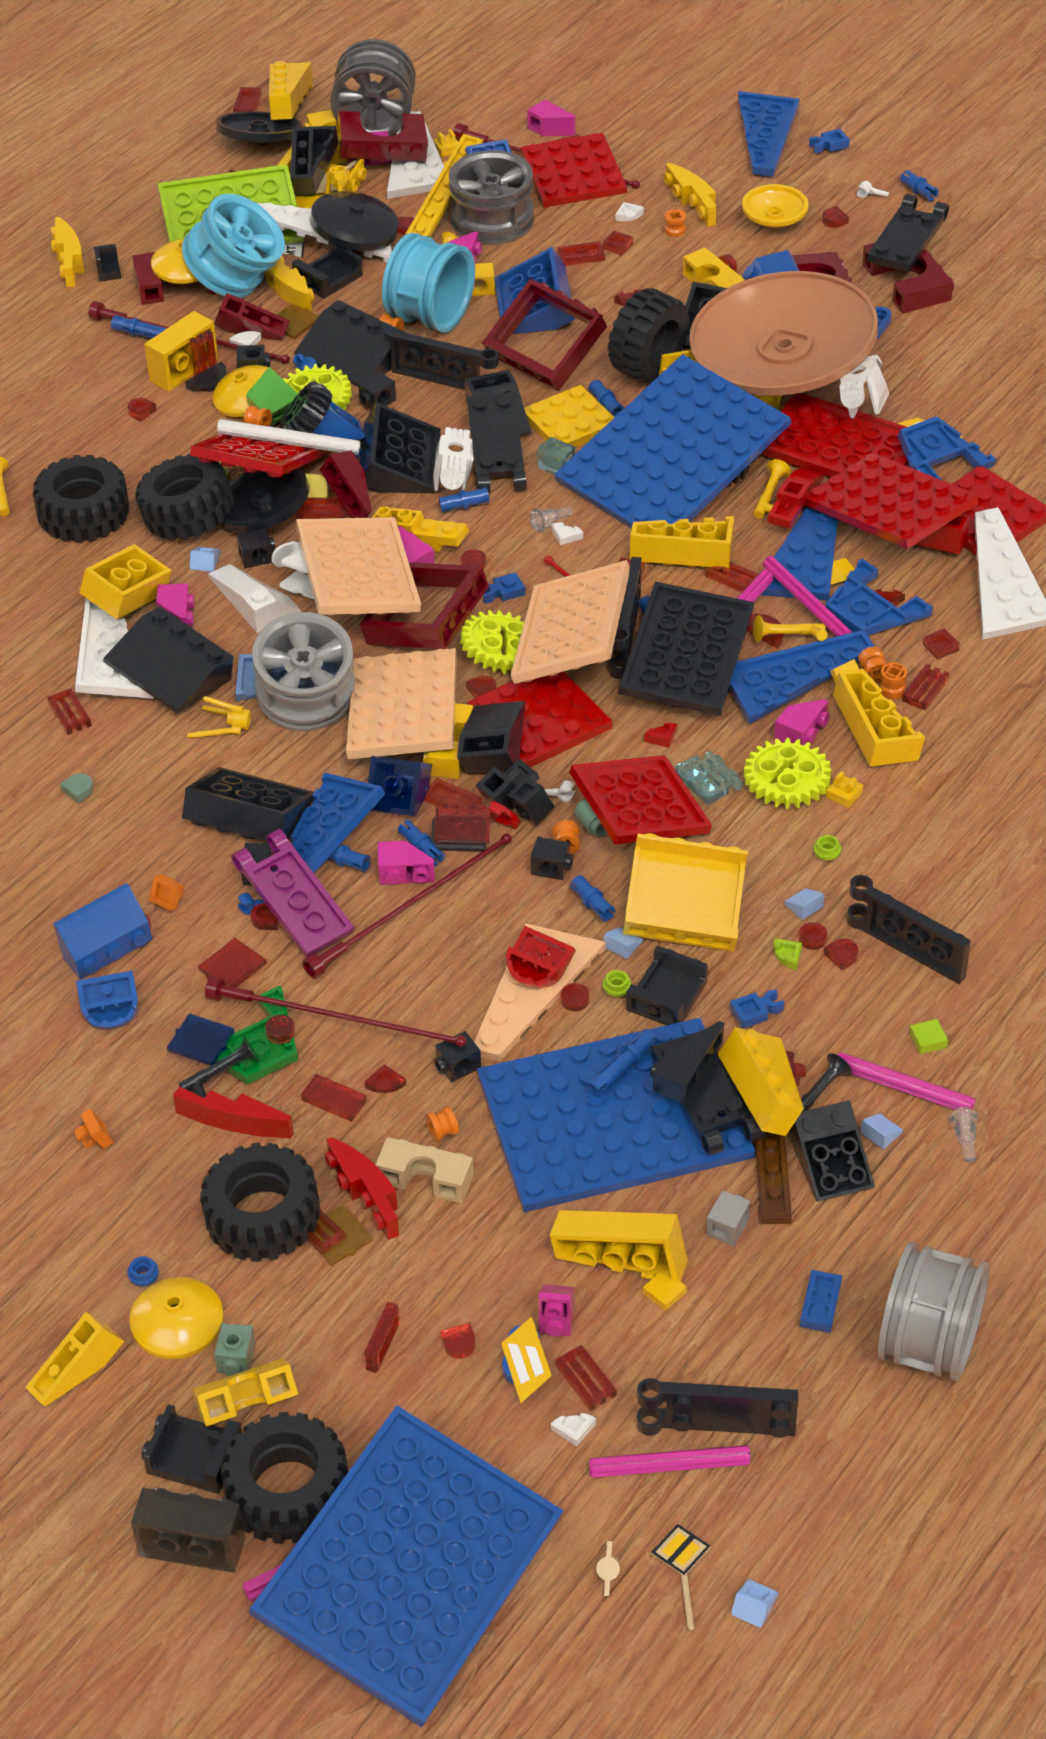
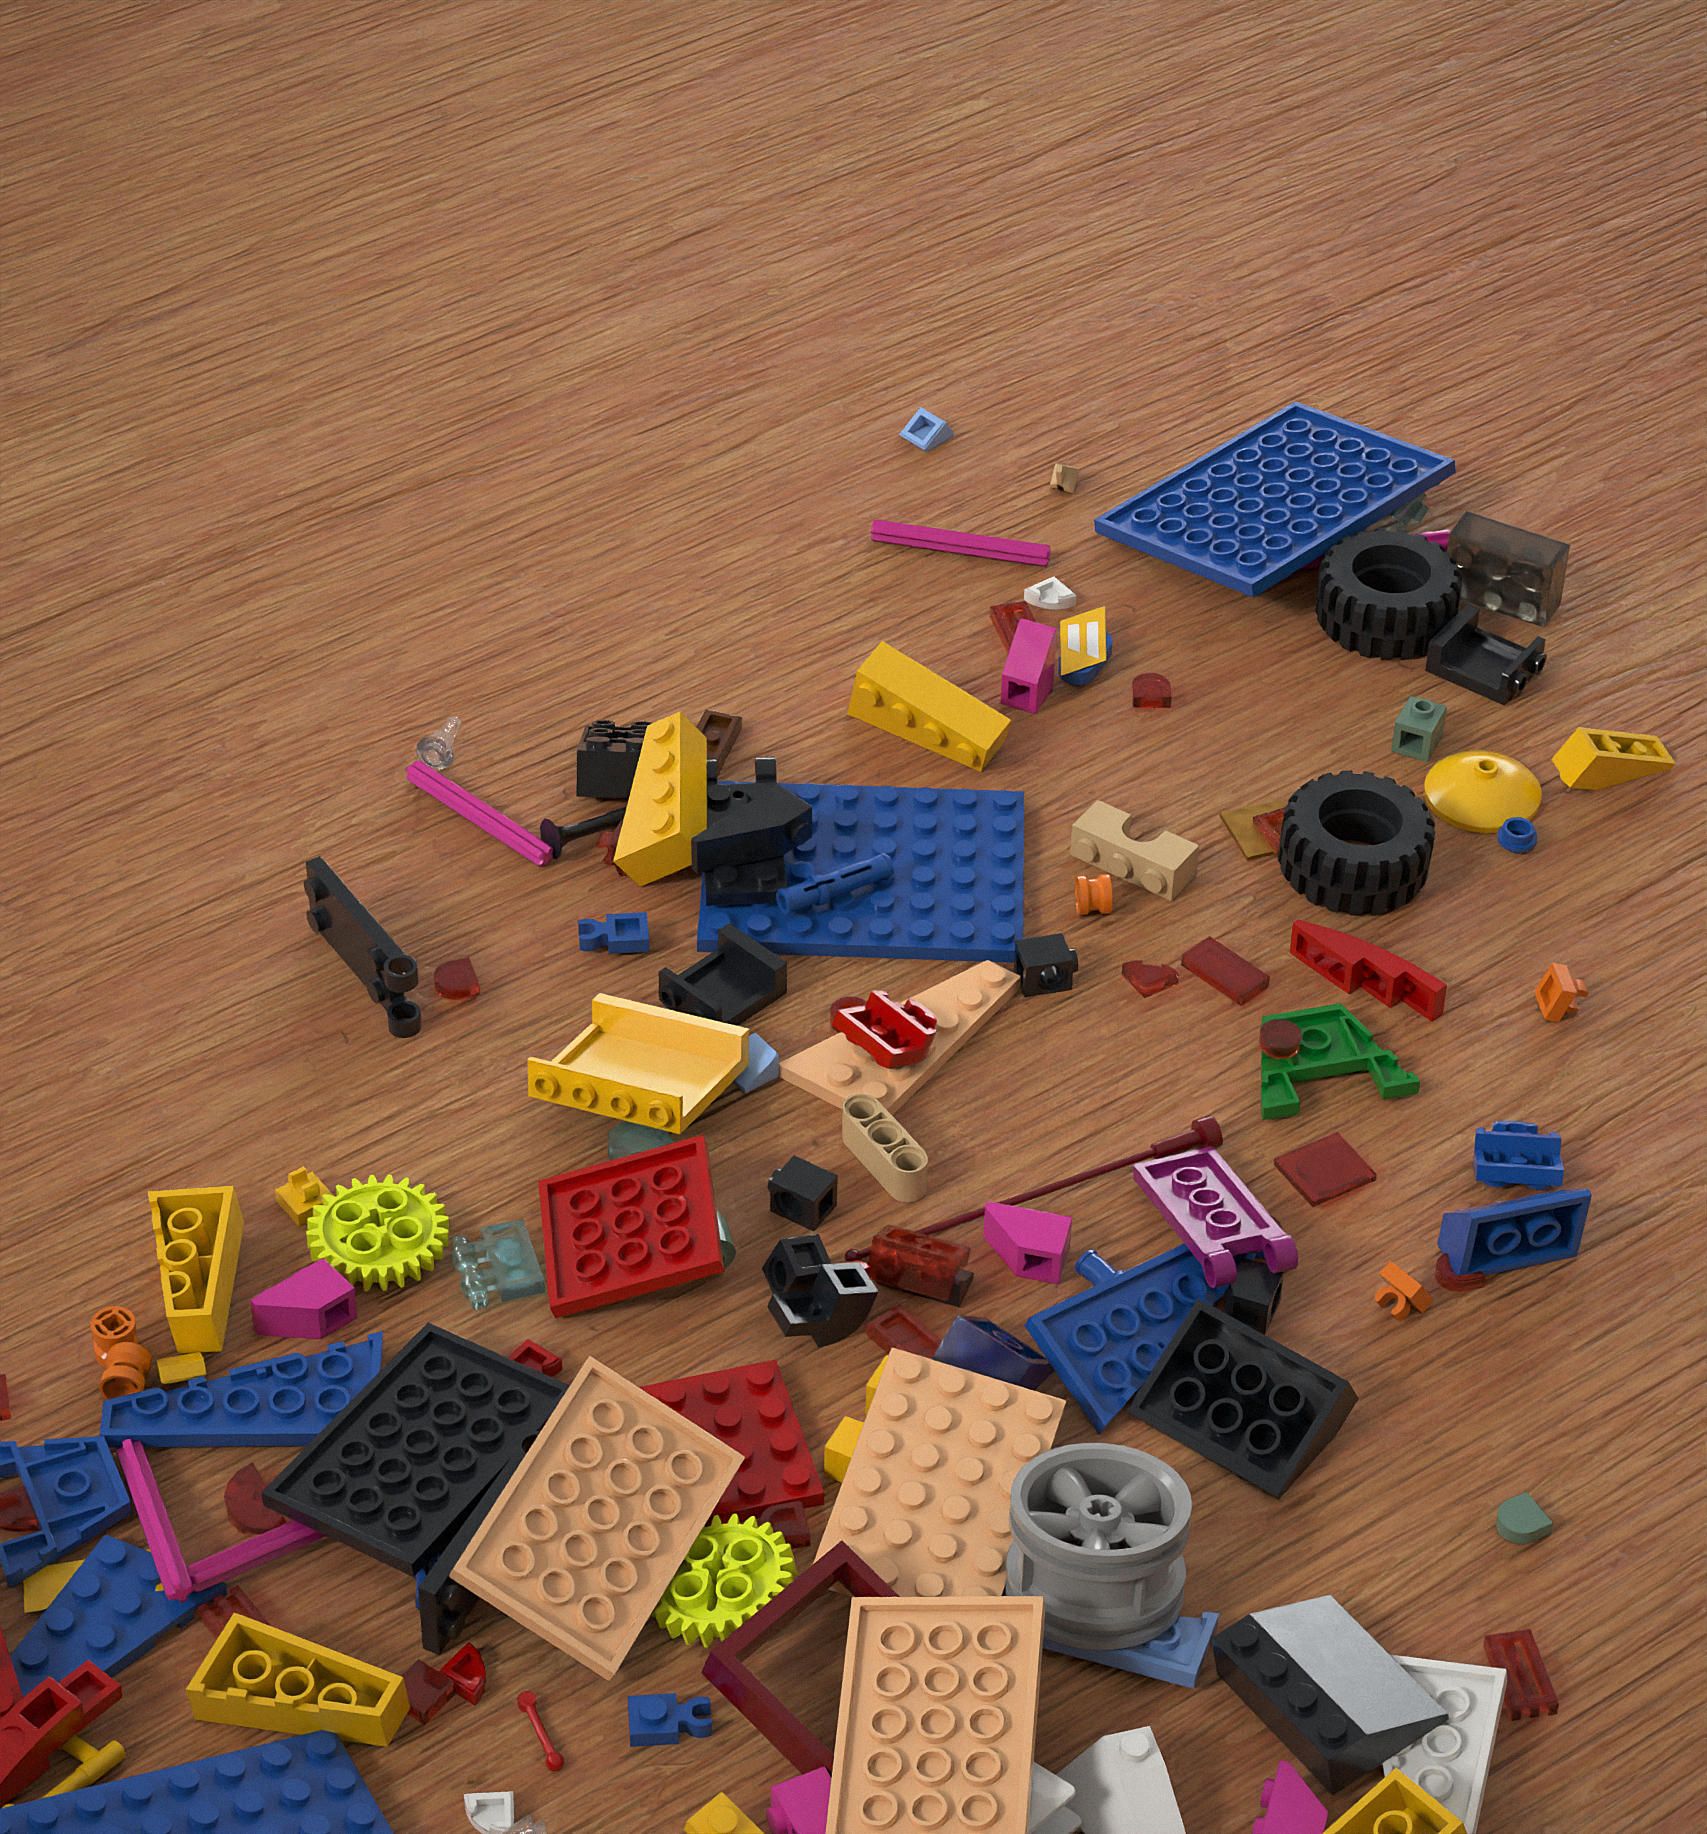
camera: 165 degrees left, 5 degrees down
(195, 1081) = (1405, 1022): black piece -> none
(200, 1039) = (1394, 1059): clear blue piece -> none
(216, 989) = (1356, 1126): dark red piece -> none
(236, 716) = (1227, 1563): yellow plant -> none
(261, 1384) = (1451, 679): yellow arch -> none
(364, 1181) = (1221, 861): red slope -> none
(382, 1337) = (1241, 701): clear red tile -> none
(421, 841) = (990, 1274): blue pin -> none
(473, 558) = (691, 1792): clear red tile -> none
(491, 737) = (814, 1379): black slope -> none
(512, 898) = (884, 1148): none -> tan beam
(564, 793) = (733, 1300): white hand -> none
(568, 832) = (765, 1219): orange wheel -> none
(592, 898) = (766, 1127): blue pin -> none
(616, 983) = (786, 1011): lime plate -> none
(682, 1552) = (983, 482): piece -> none
(717, 1408) = (892, 540): black hinge -> none
(728, 1218) = (782, 718): light grey brick -> none
(763, 628) = (183, 1475): yellow piece -> none
(787, 952) = (528, 1000): lime tile -> none
(805, 902) = (465, 1051): light blue slope -> none
(813, 936) = (482, 1013): clear red tile -> none
(821, 1301) = (719, 628): blue plate -> none
(827, 847) = (387, 1116): lime plate -> none
(880, 1130) = (541, 771): light blue slope -> none
(928, 1036) = (411, 858): lime tile -> none
(933, 674) = (59, 1326): clear red tile -> none
(933, 1311) = (617, 527): light grey wheel -> none

